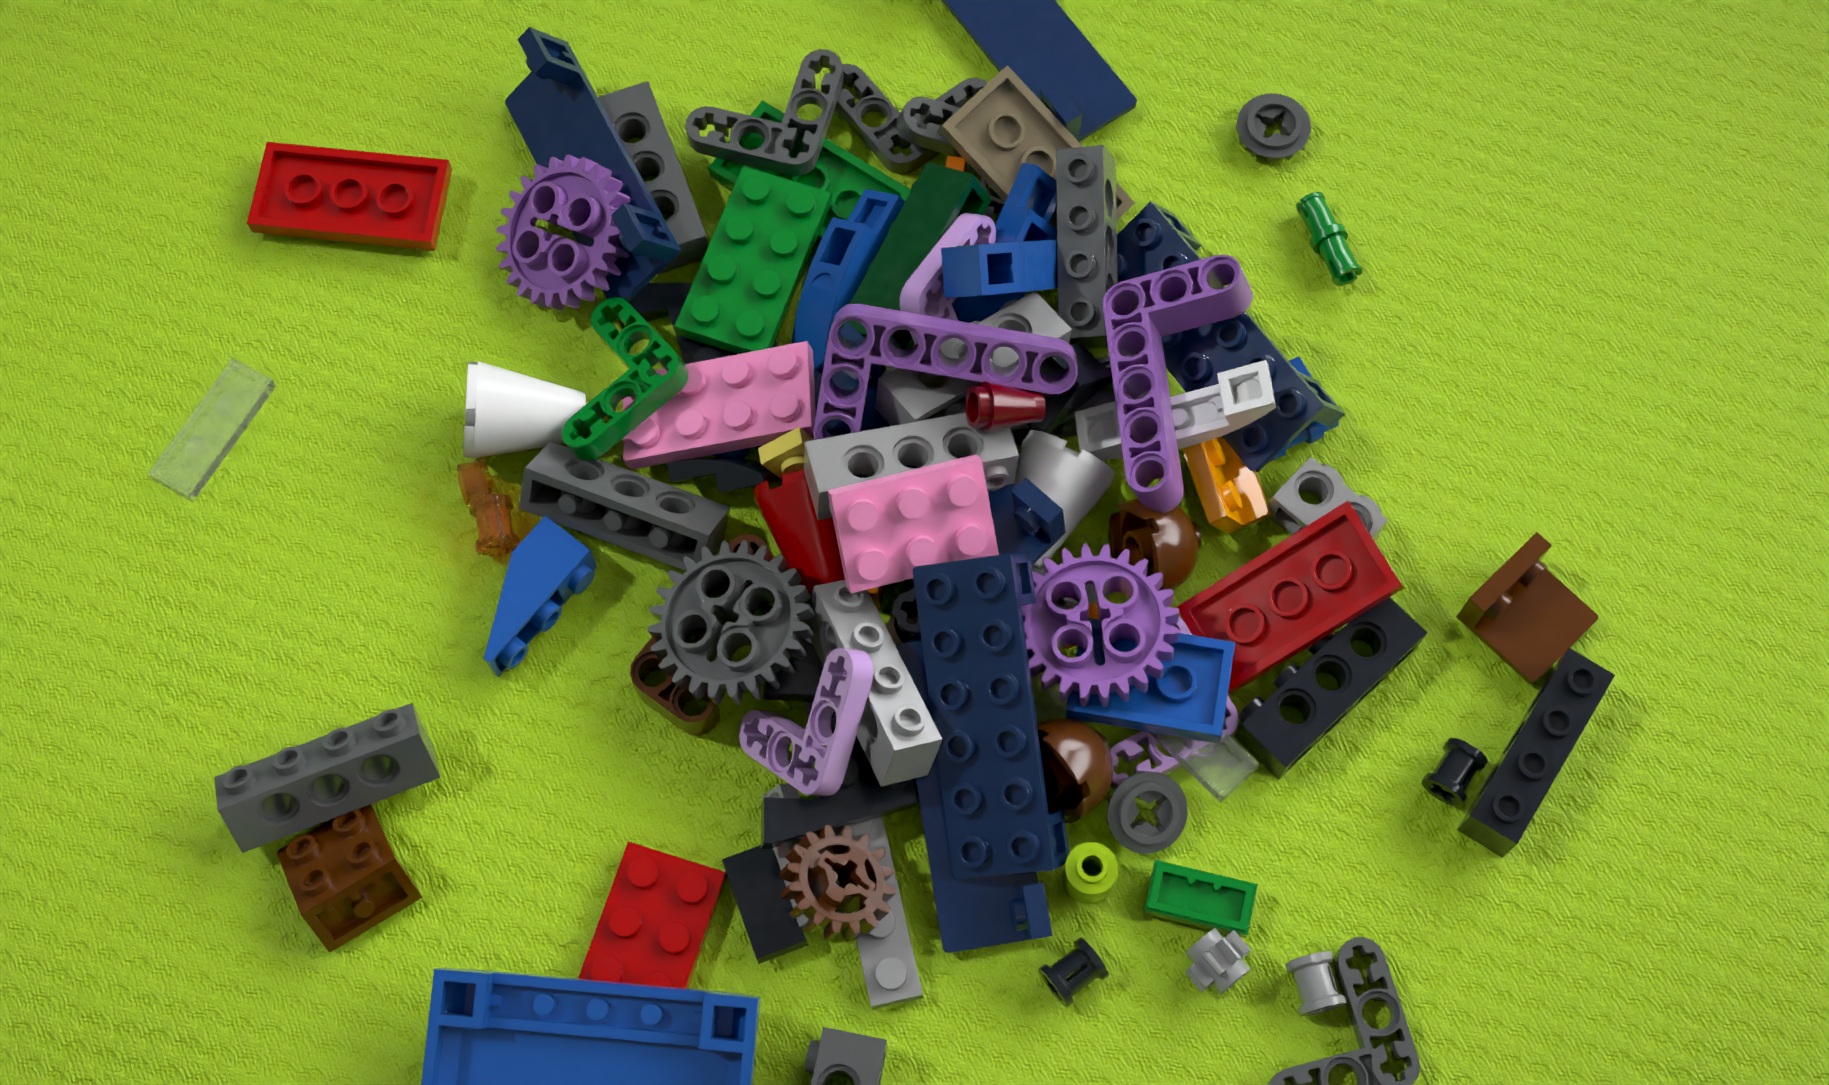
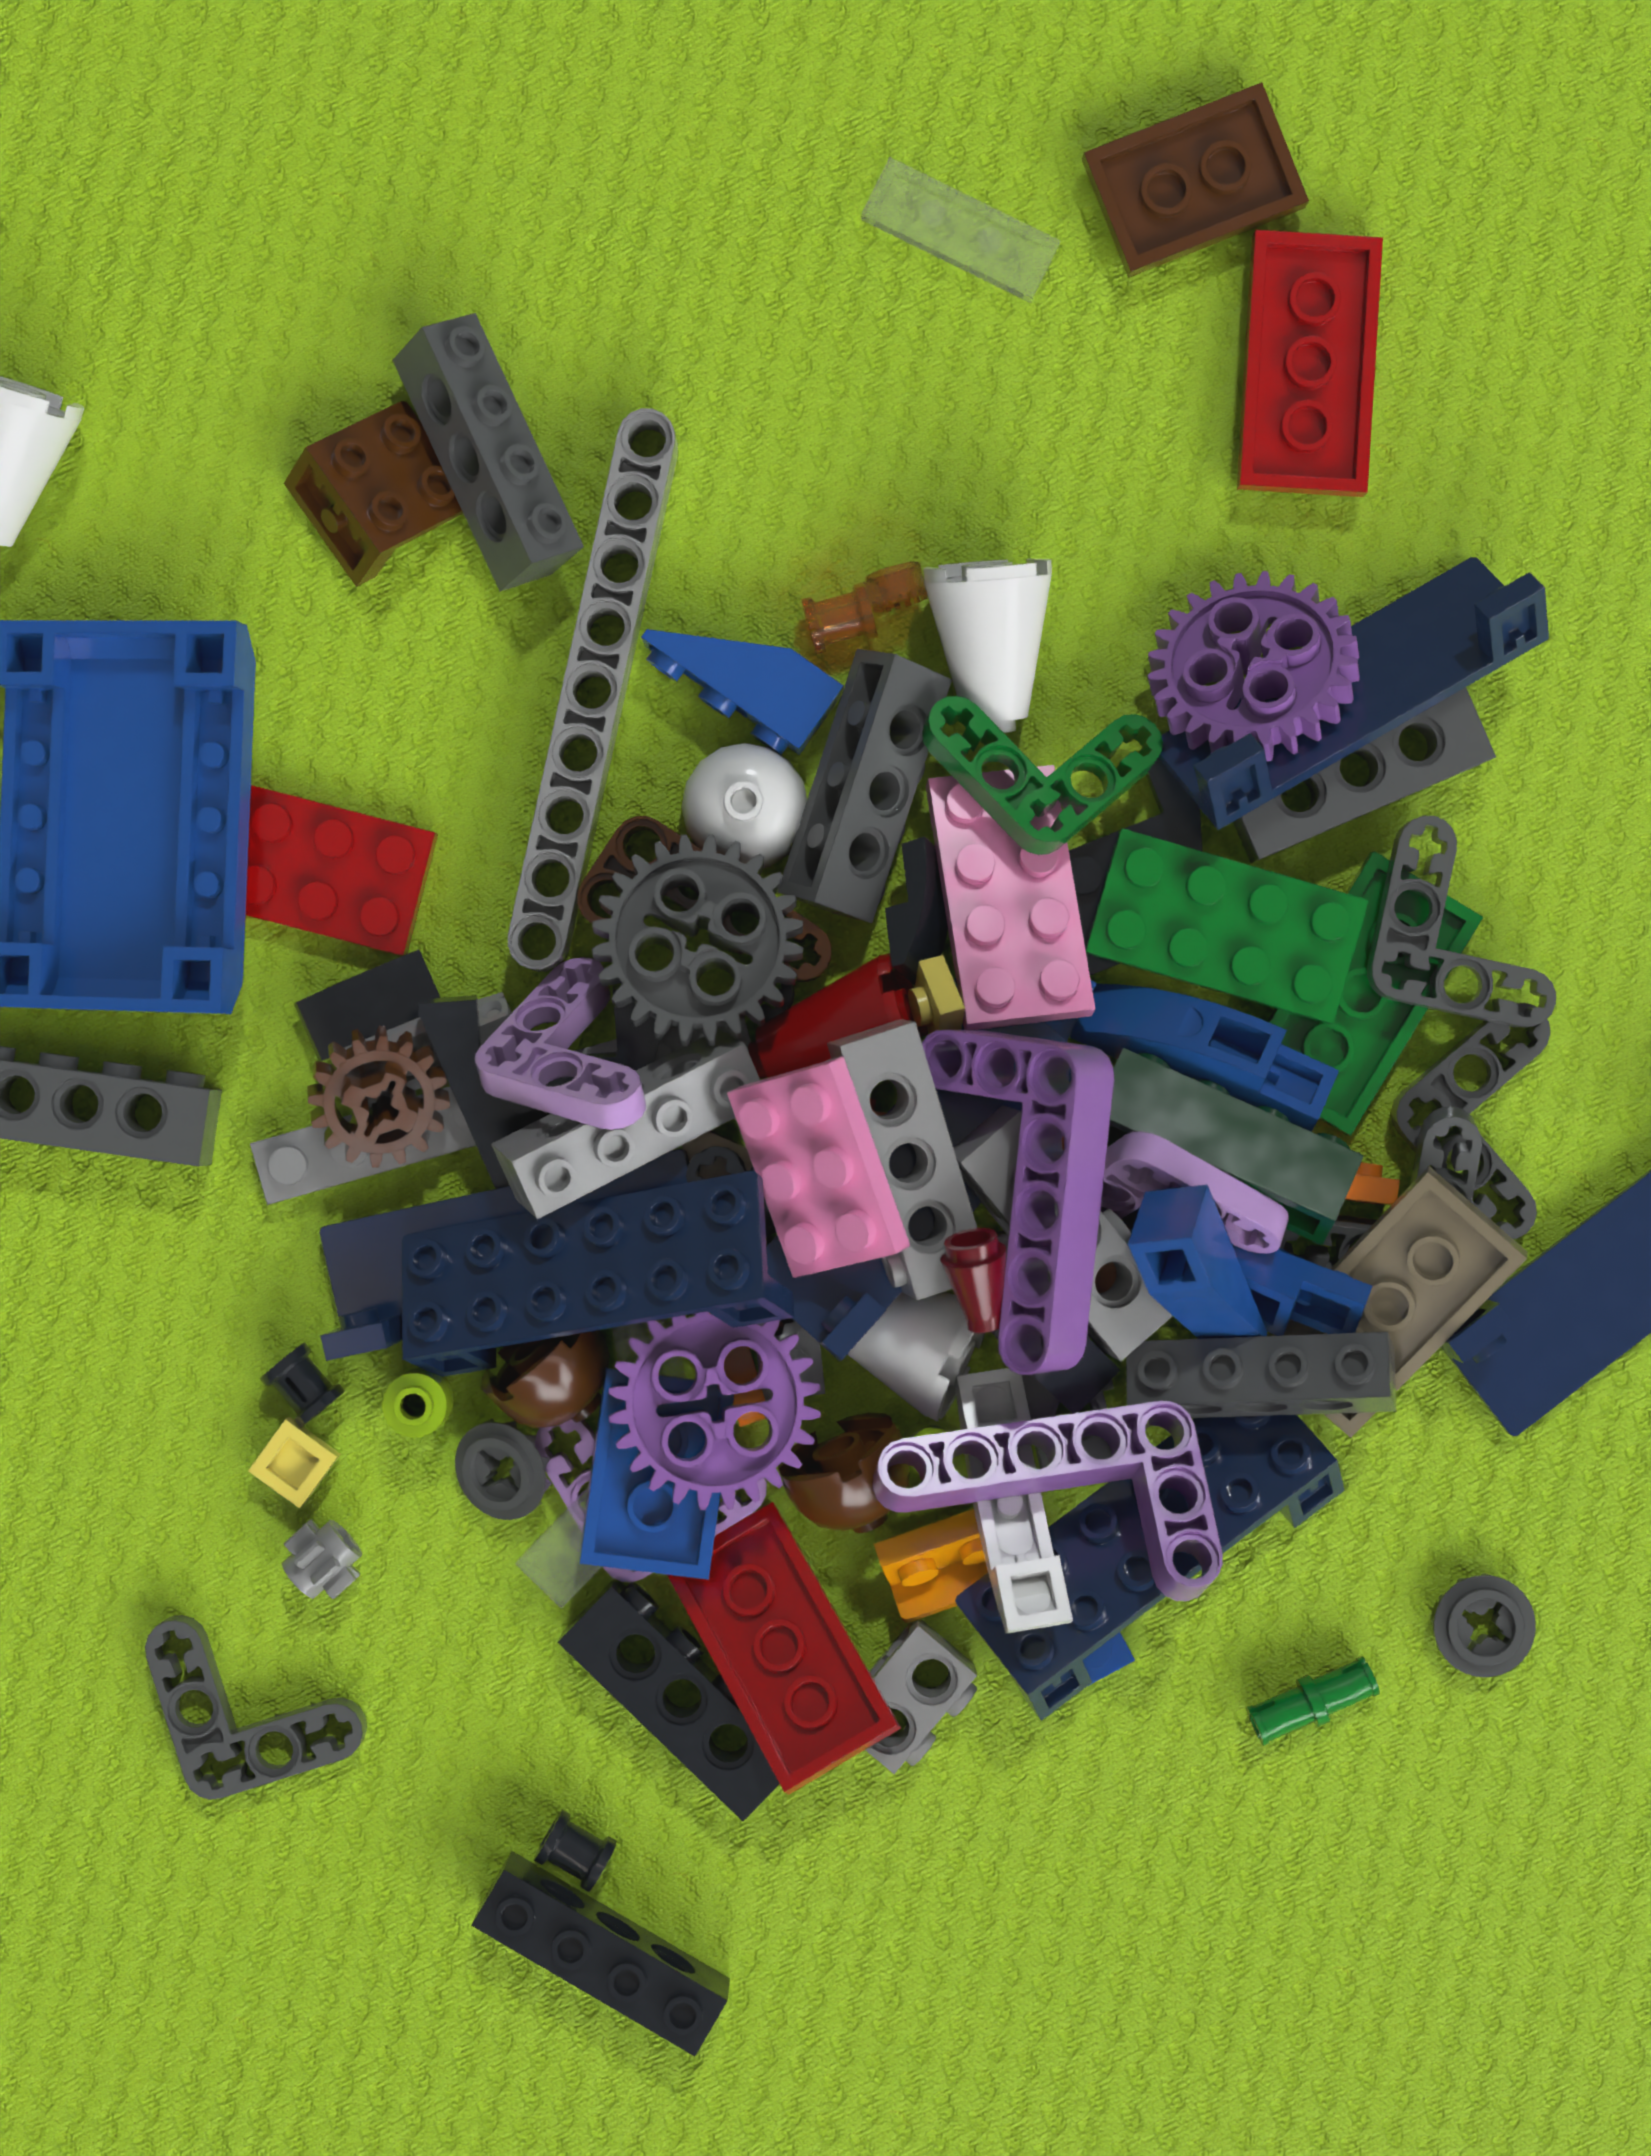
camera: 85 degrees right, 20 degrees up
(203, 265) = (1195, 180): none -> reddish brown plate
(511, 693) = (588, 660): none -> light grey beam
(620, 599) = (745, 797): none -> white cylinder
(1137, 983) = (294, 1462): none -> light yellow plate
(1200, 898) = (401, 1536): green plate -> none
(1315, 983) = (303, 1676): light grey bush -> none
(1527, 613) = (788, 1949): reddish brown bracket -> none

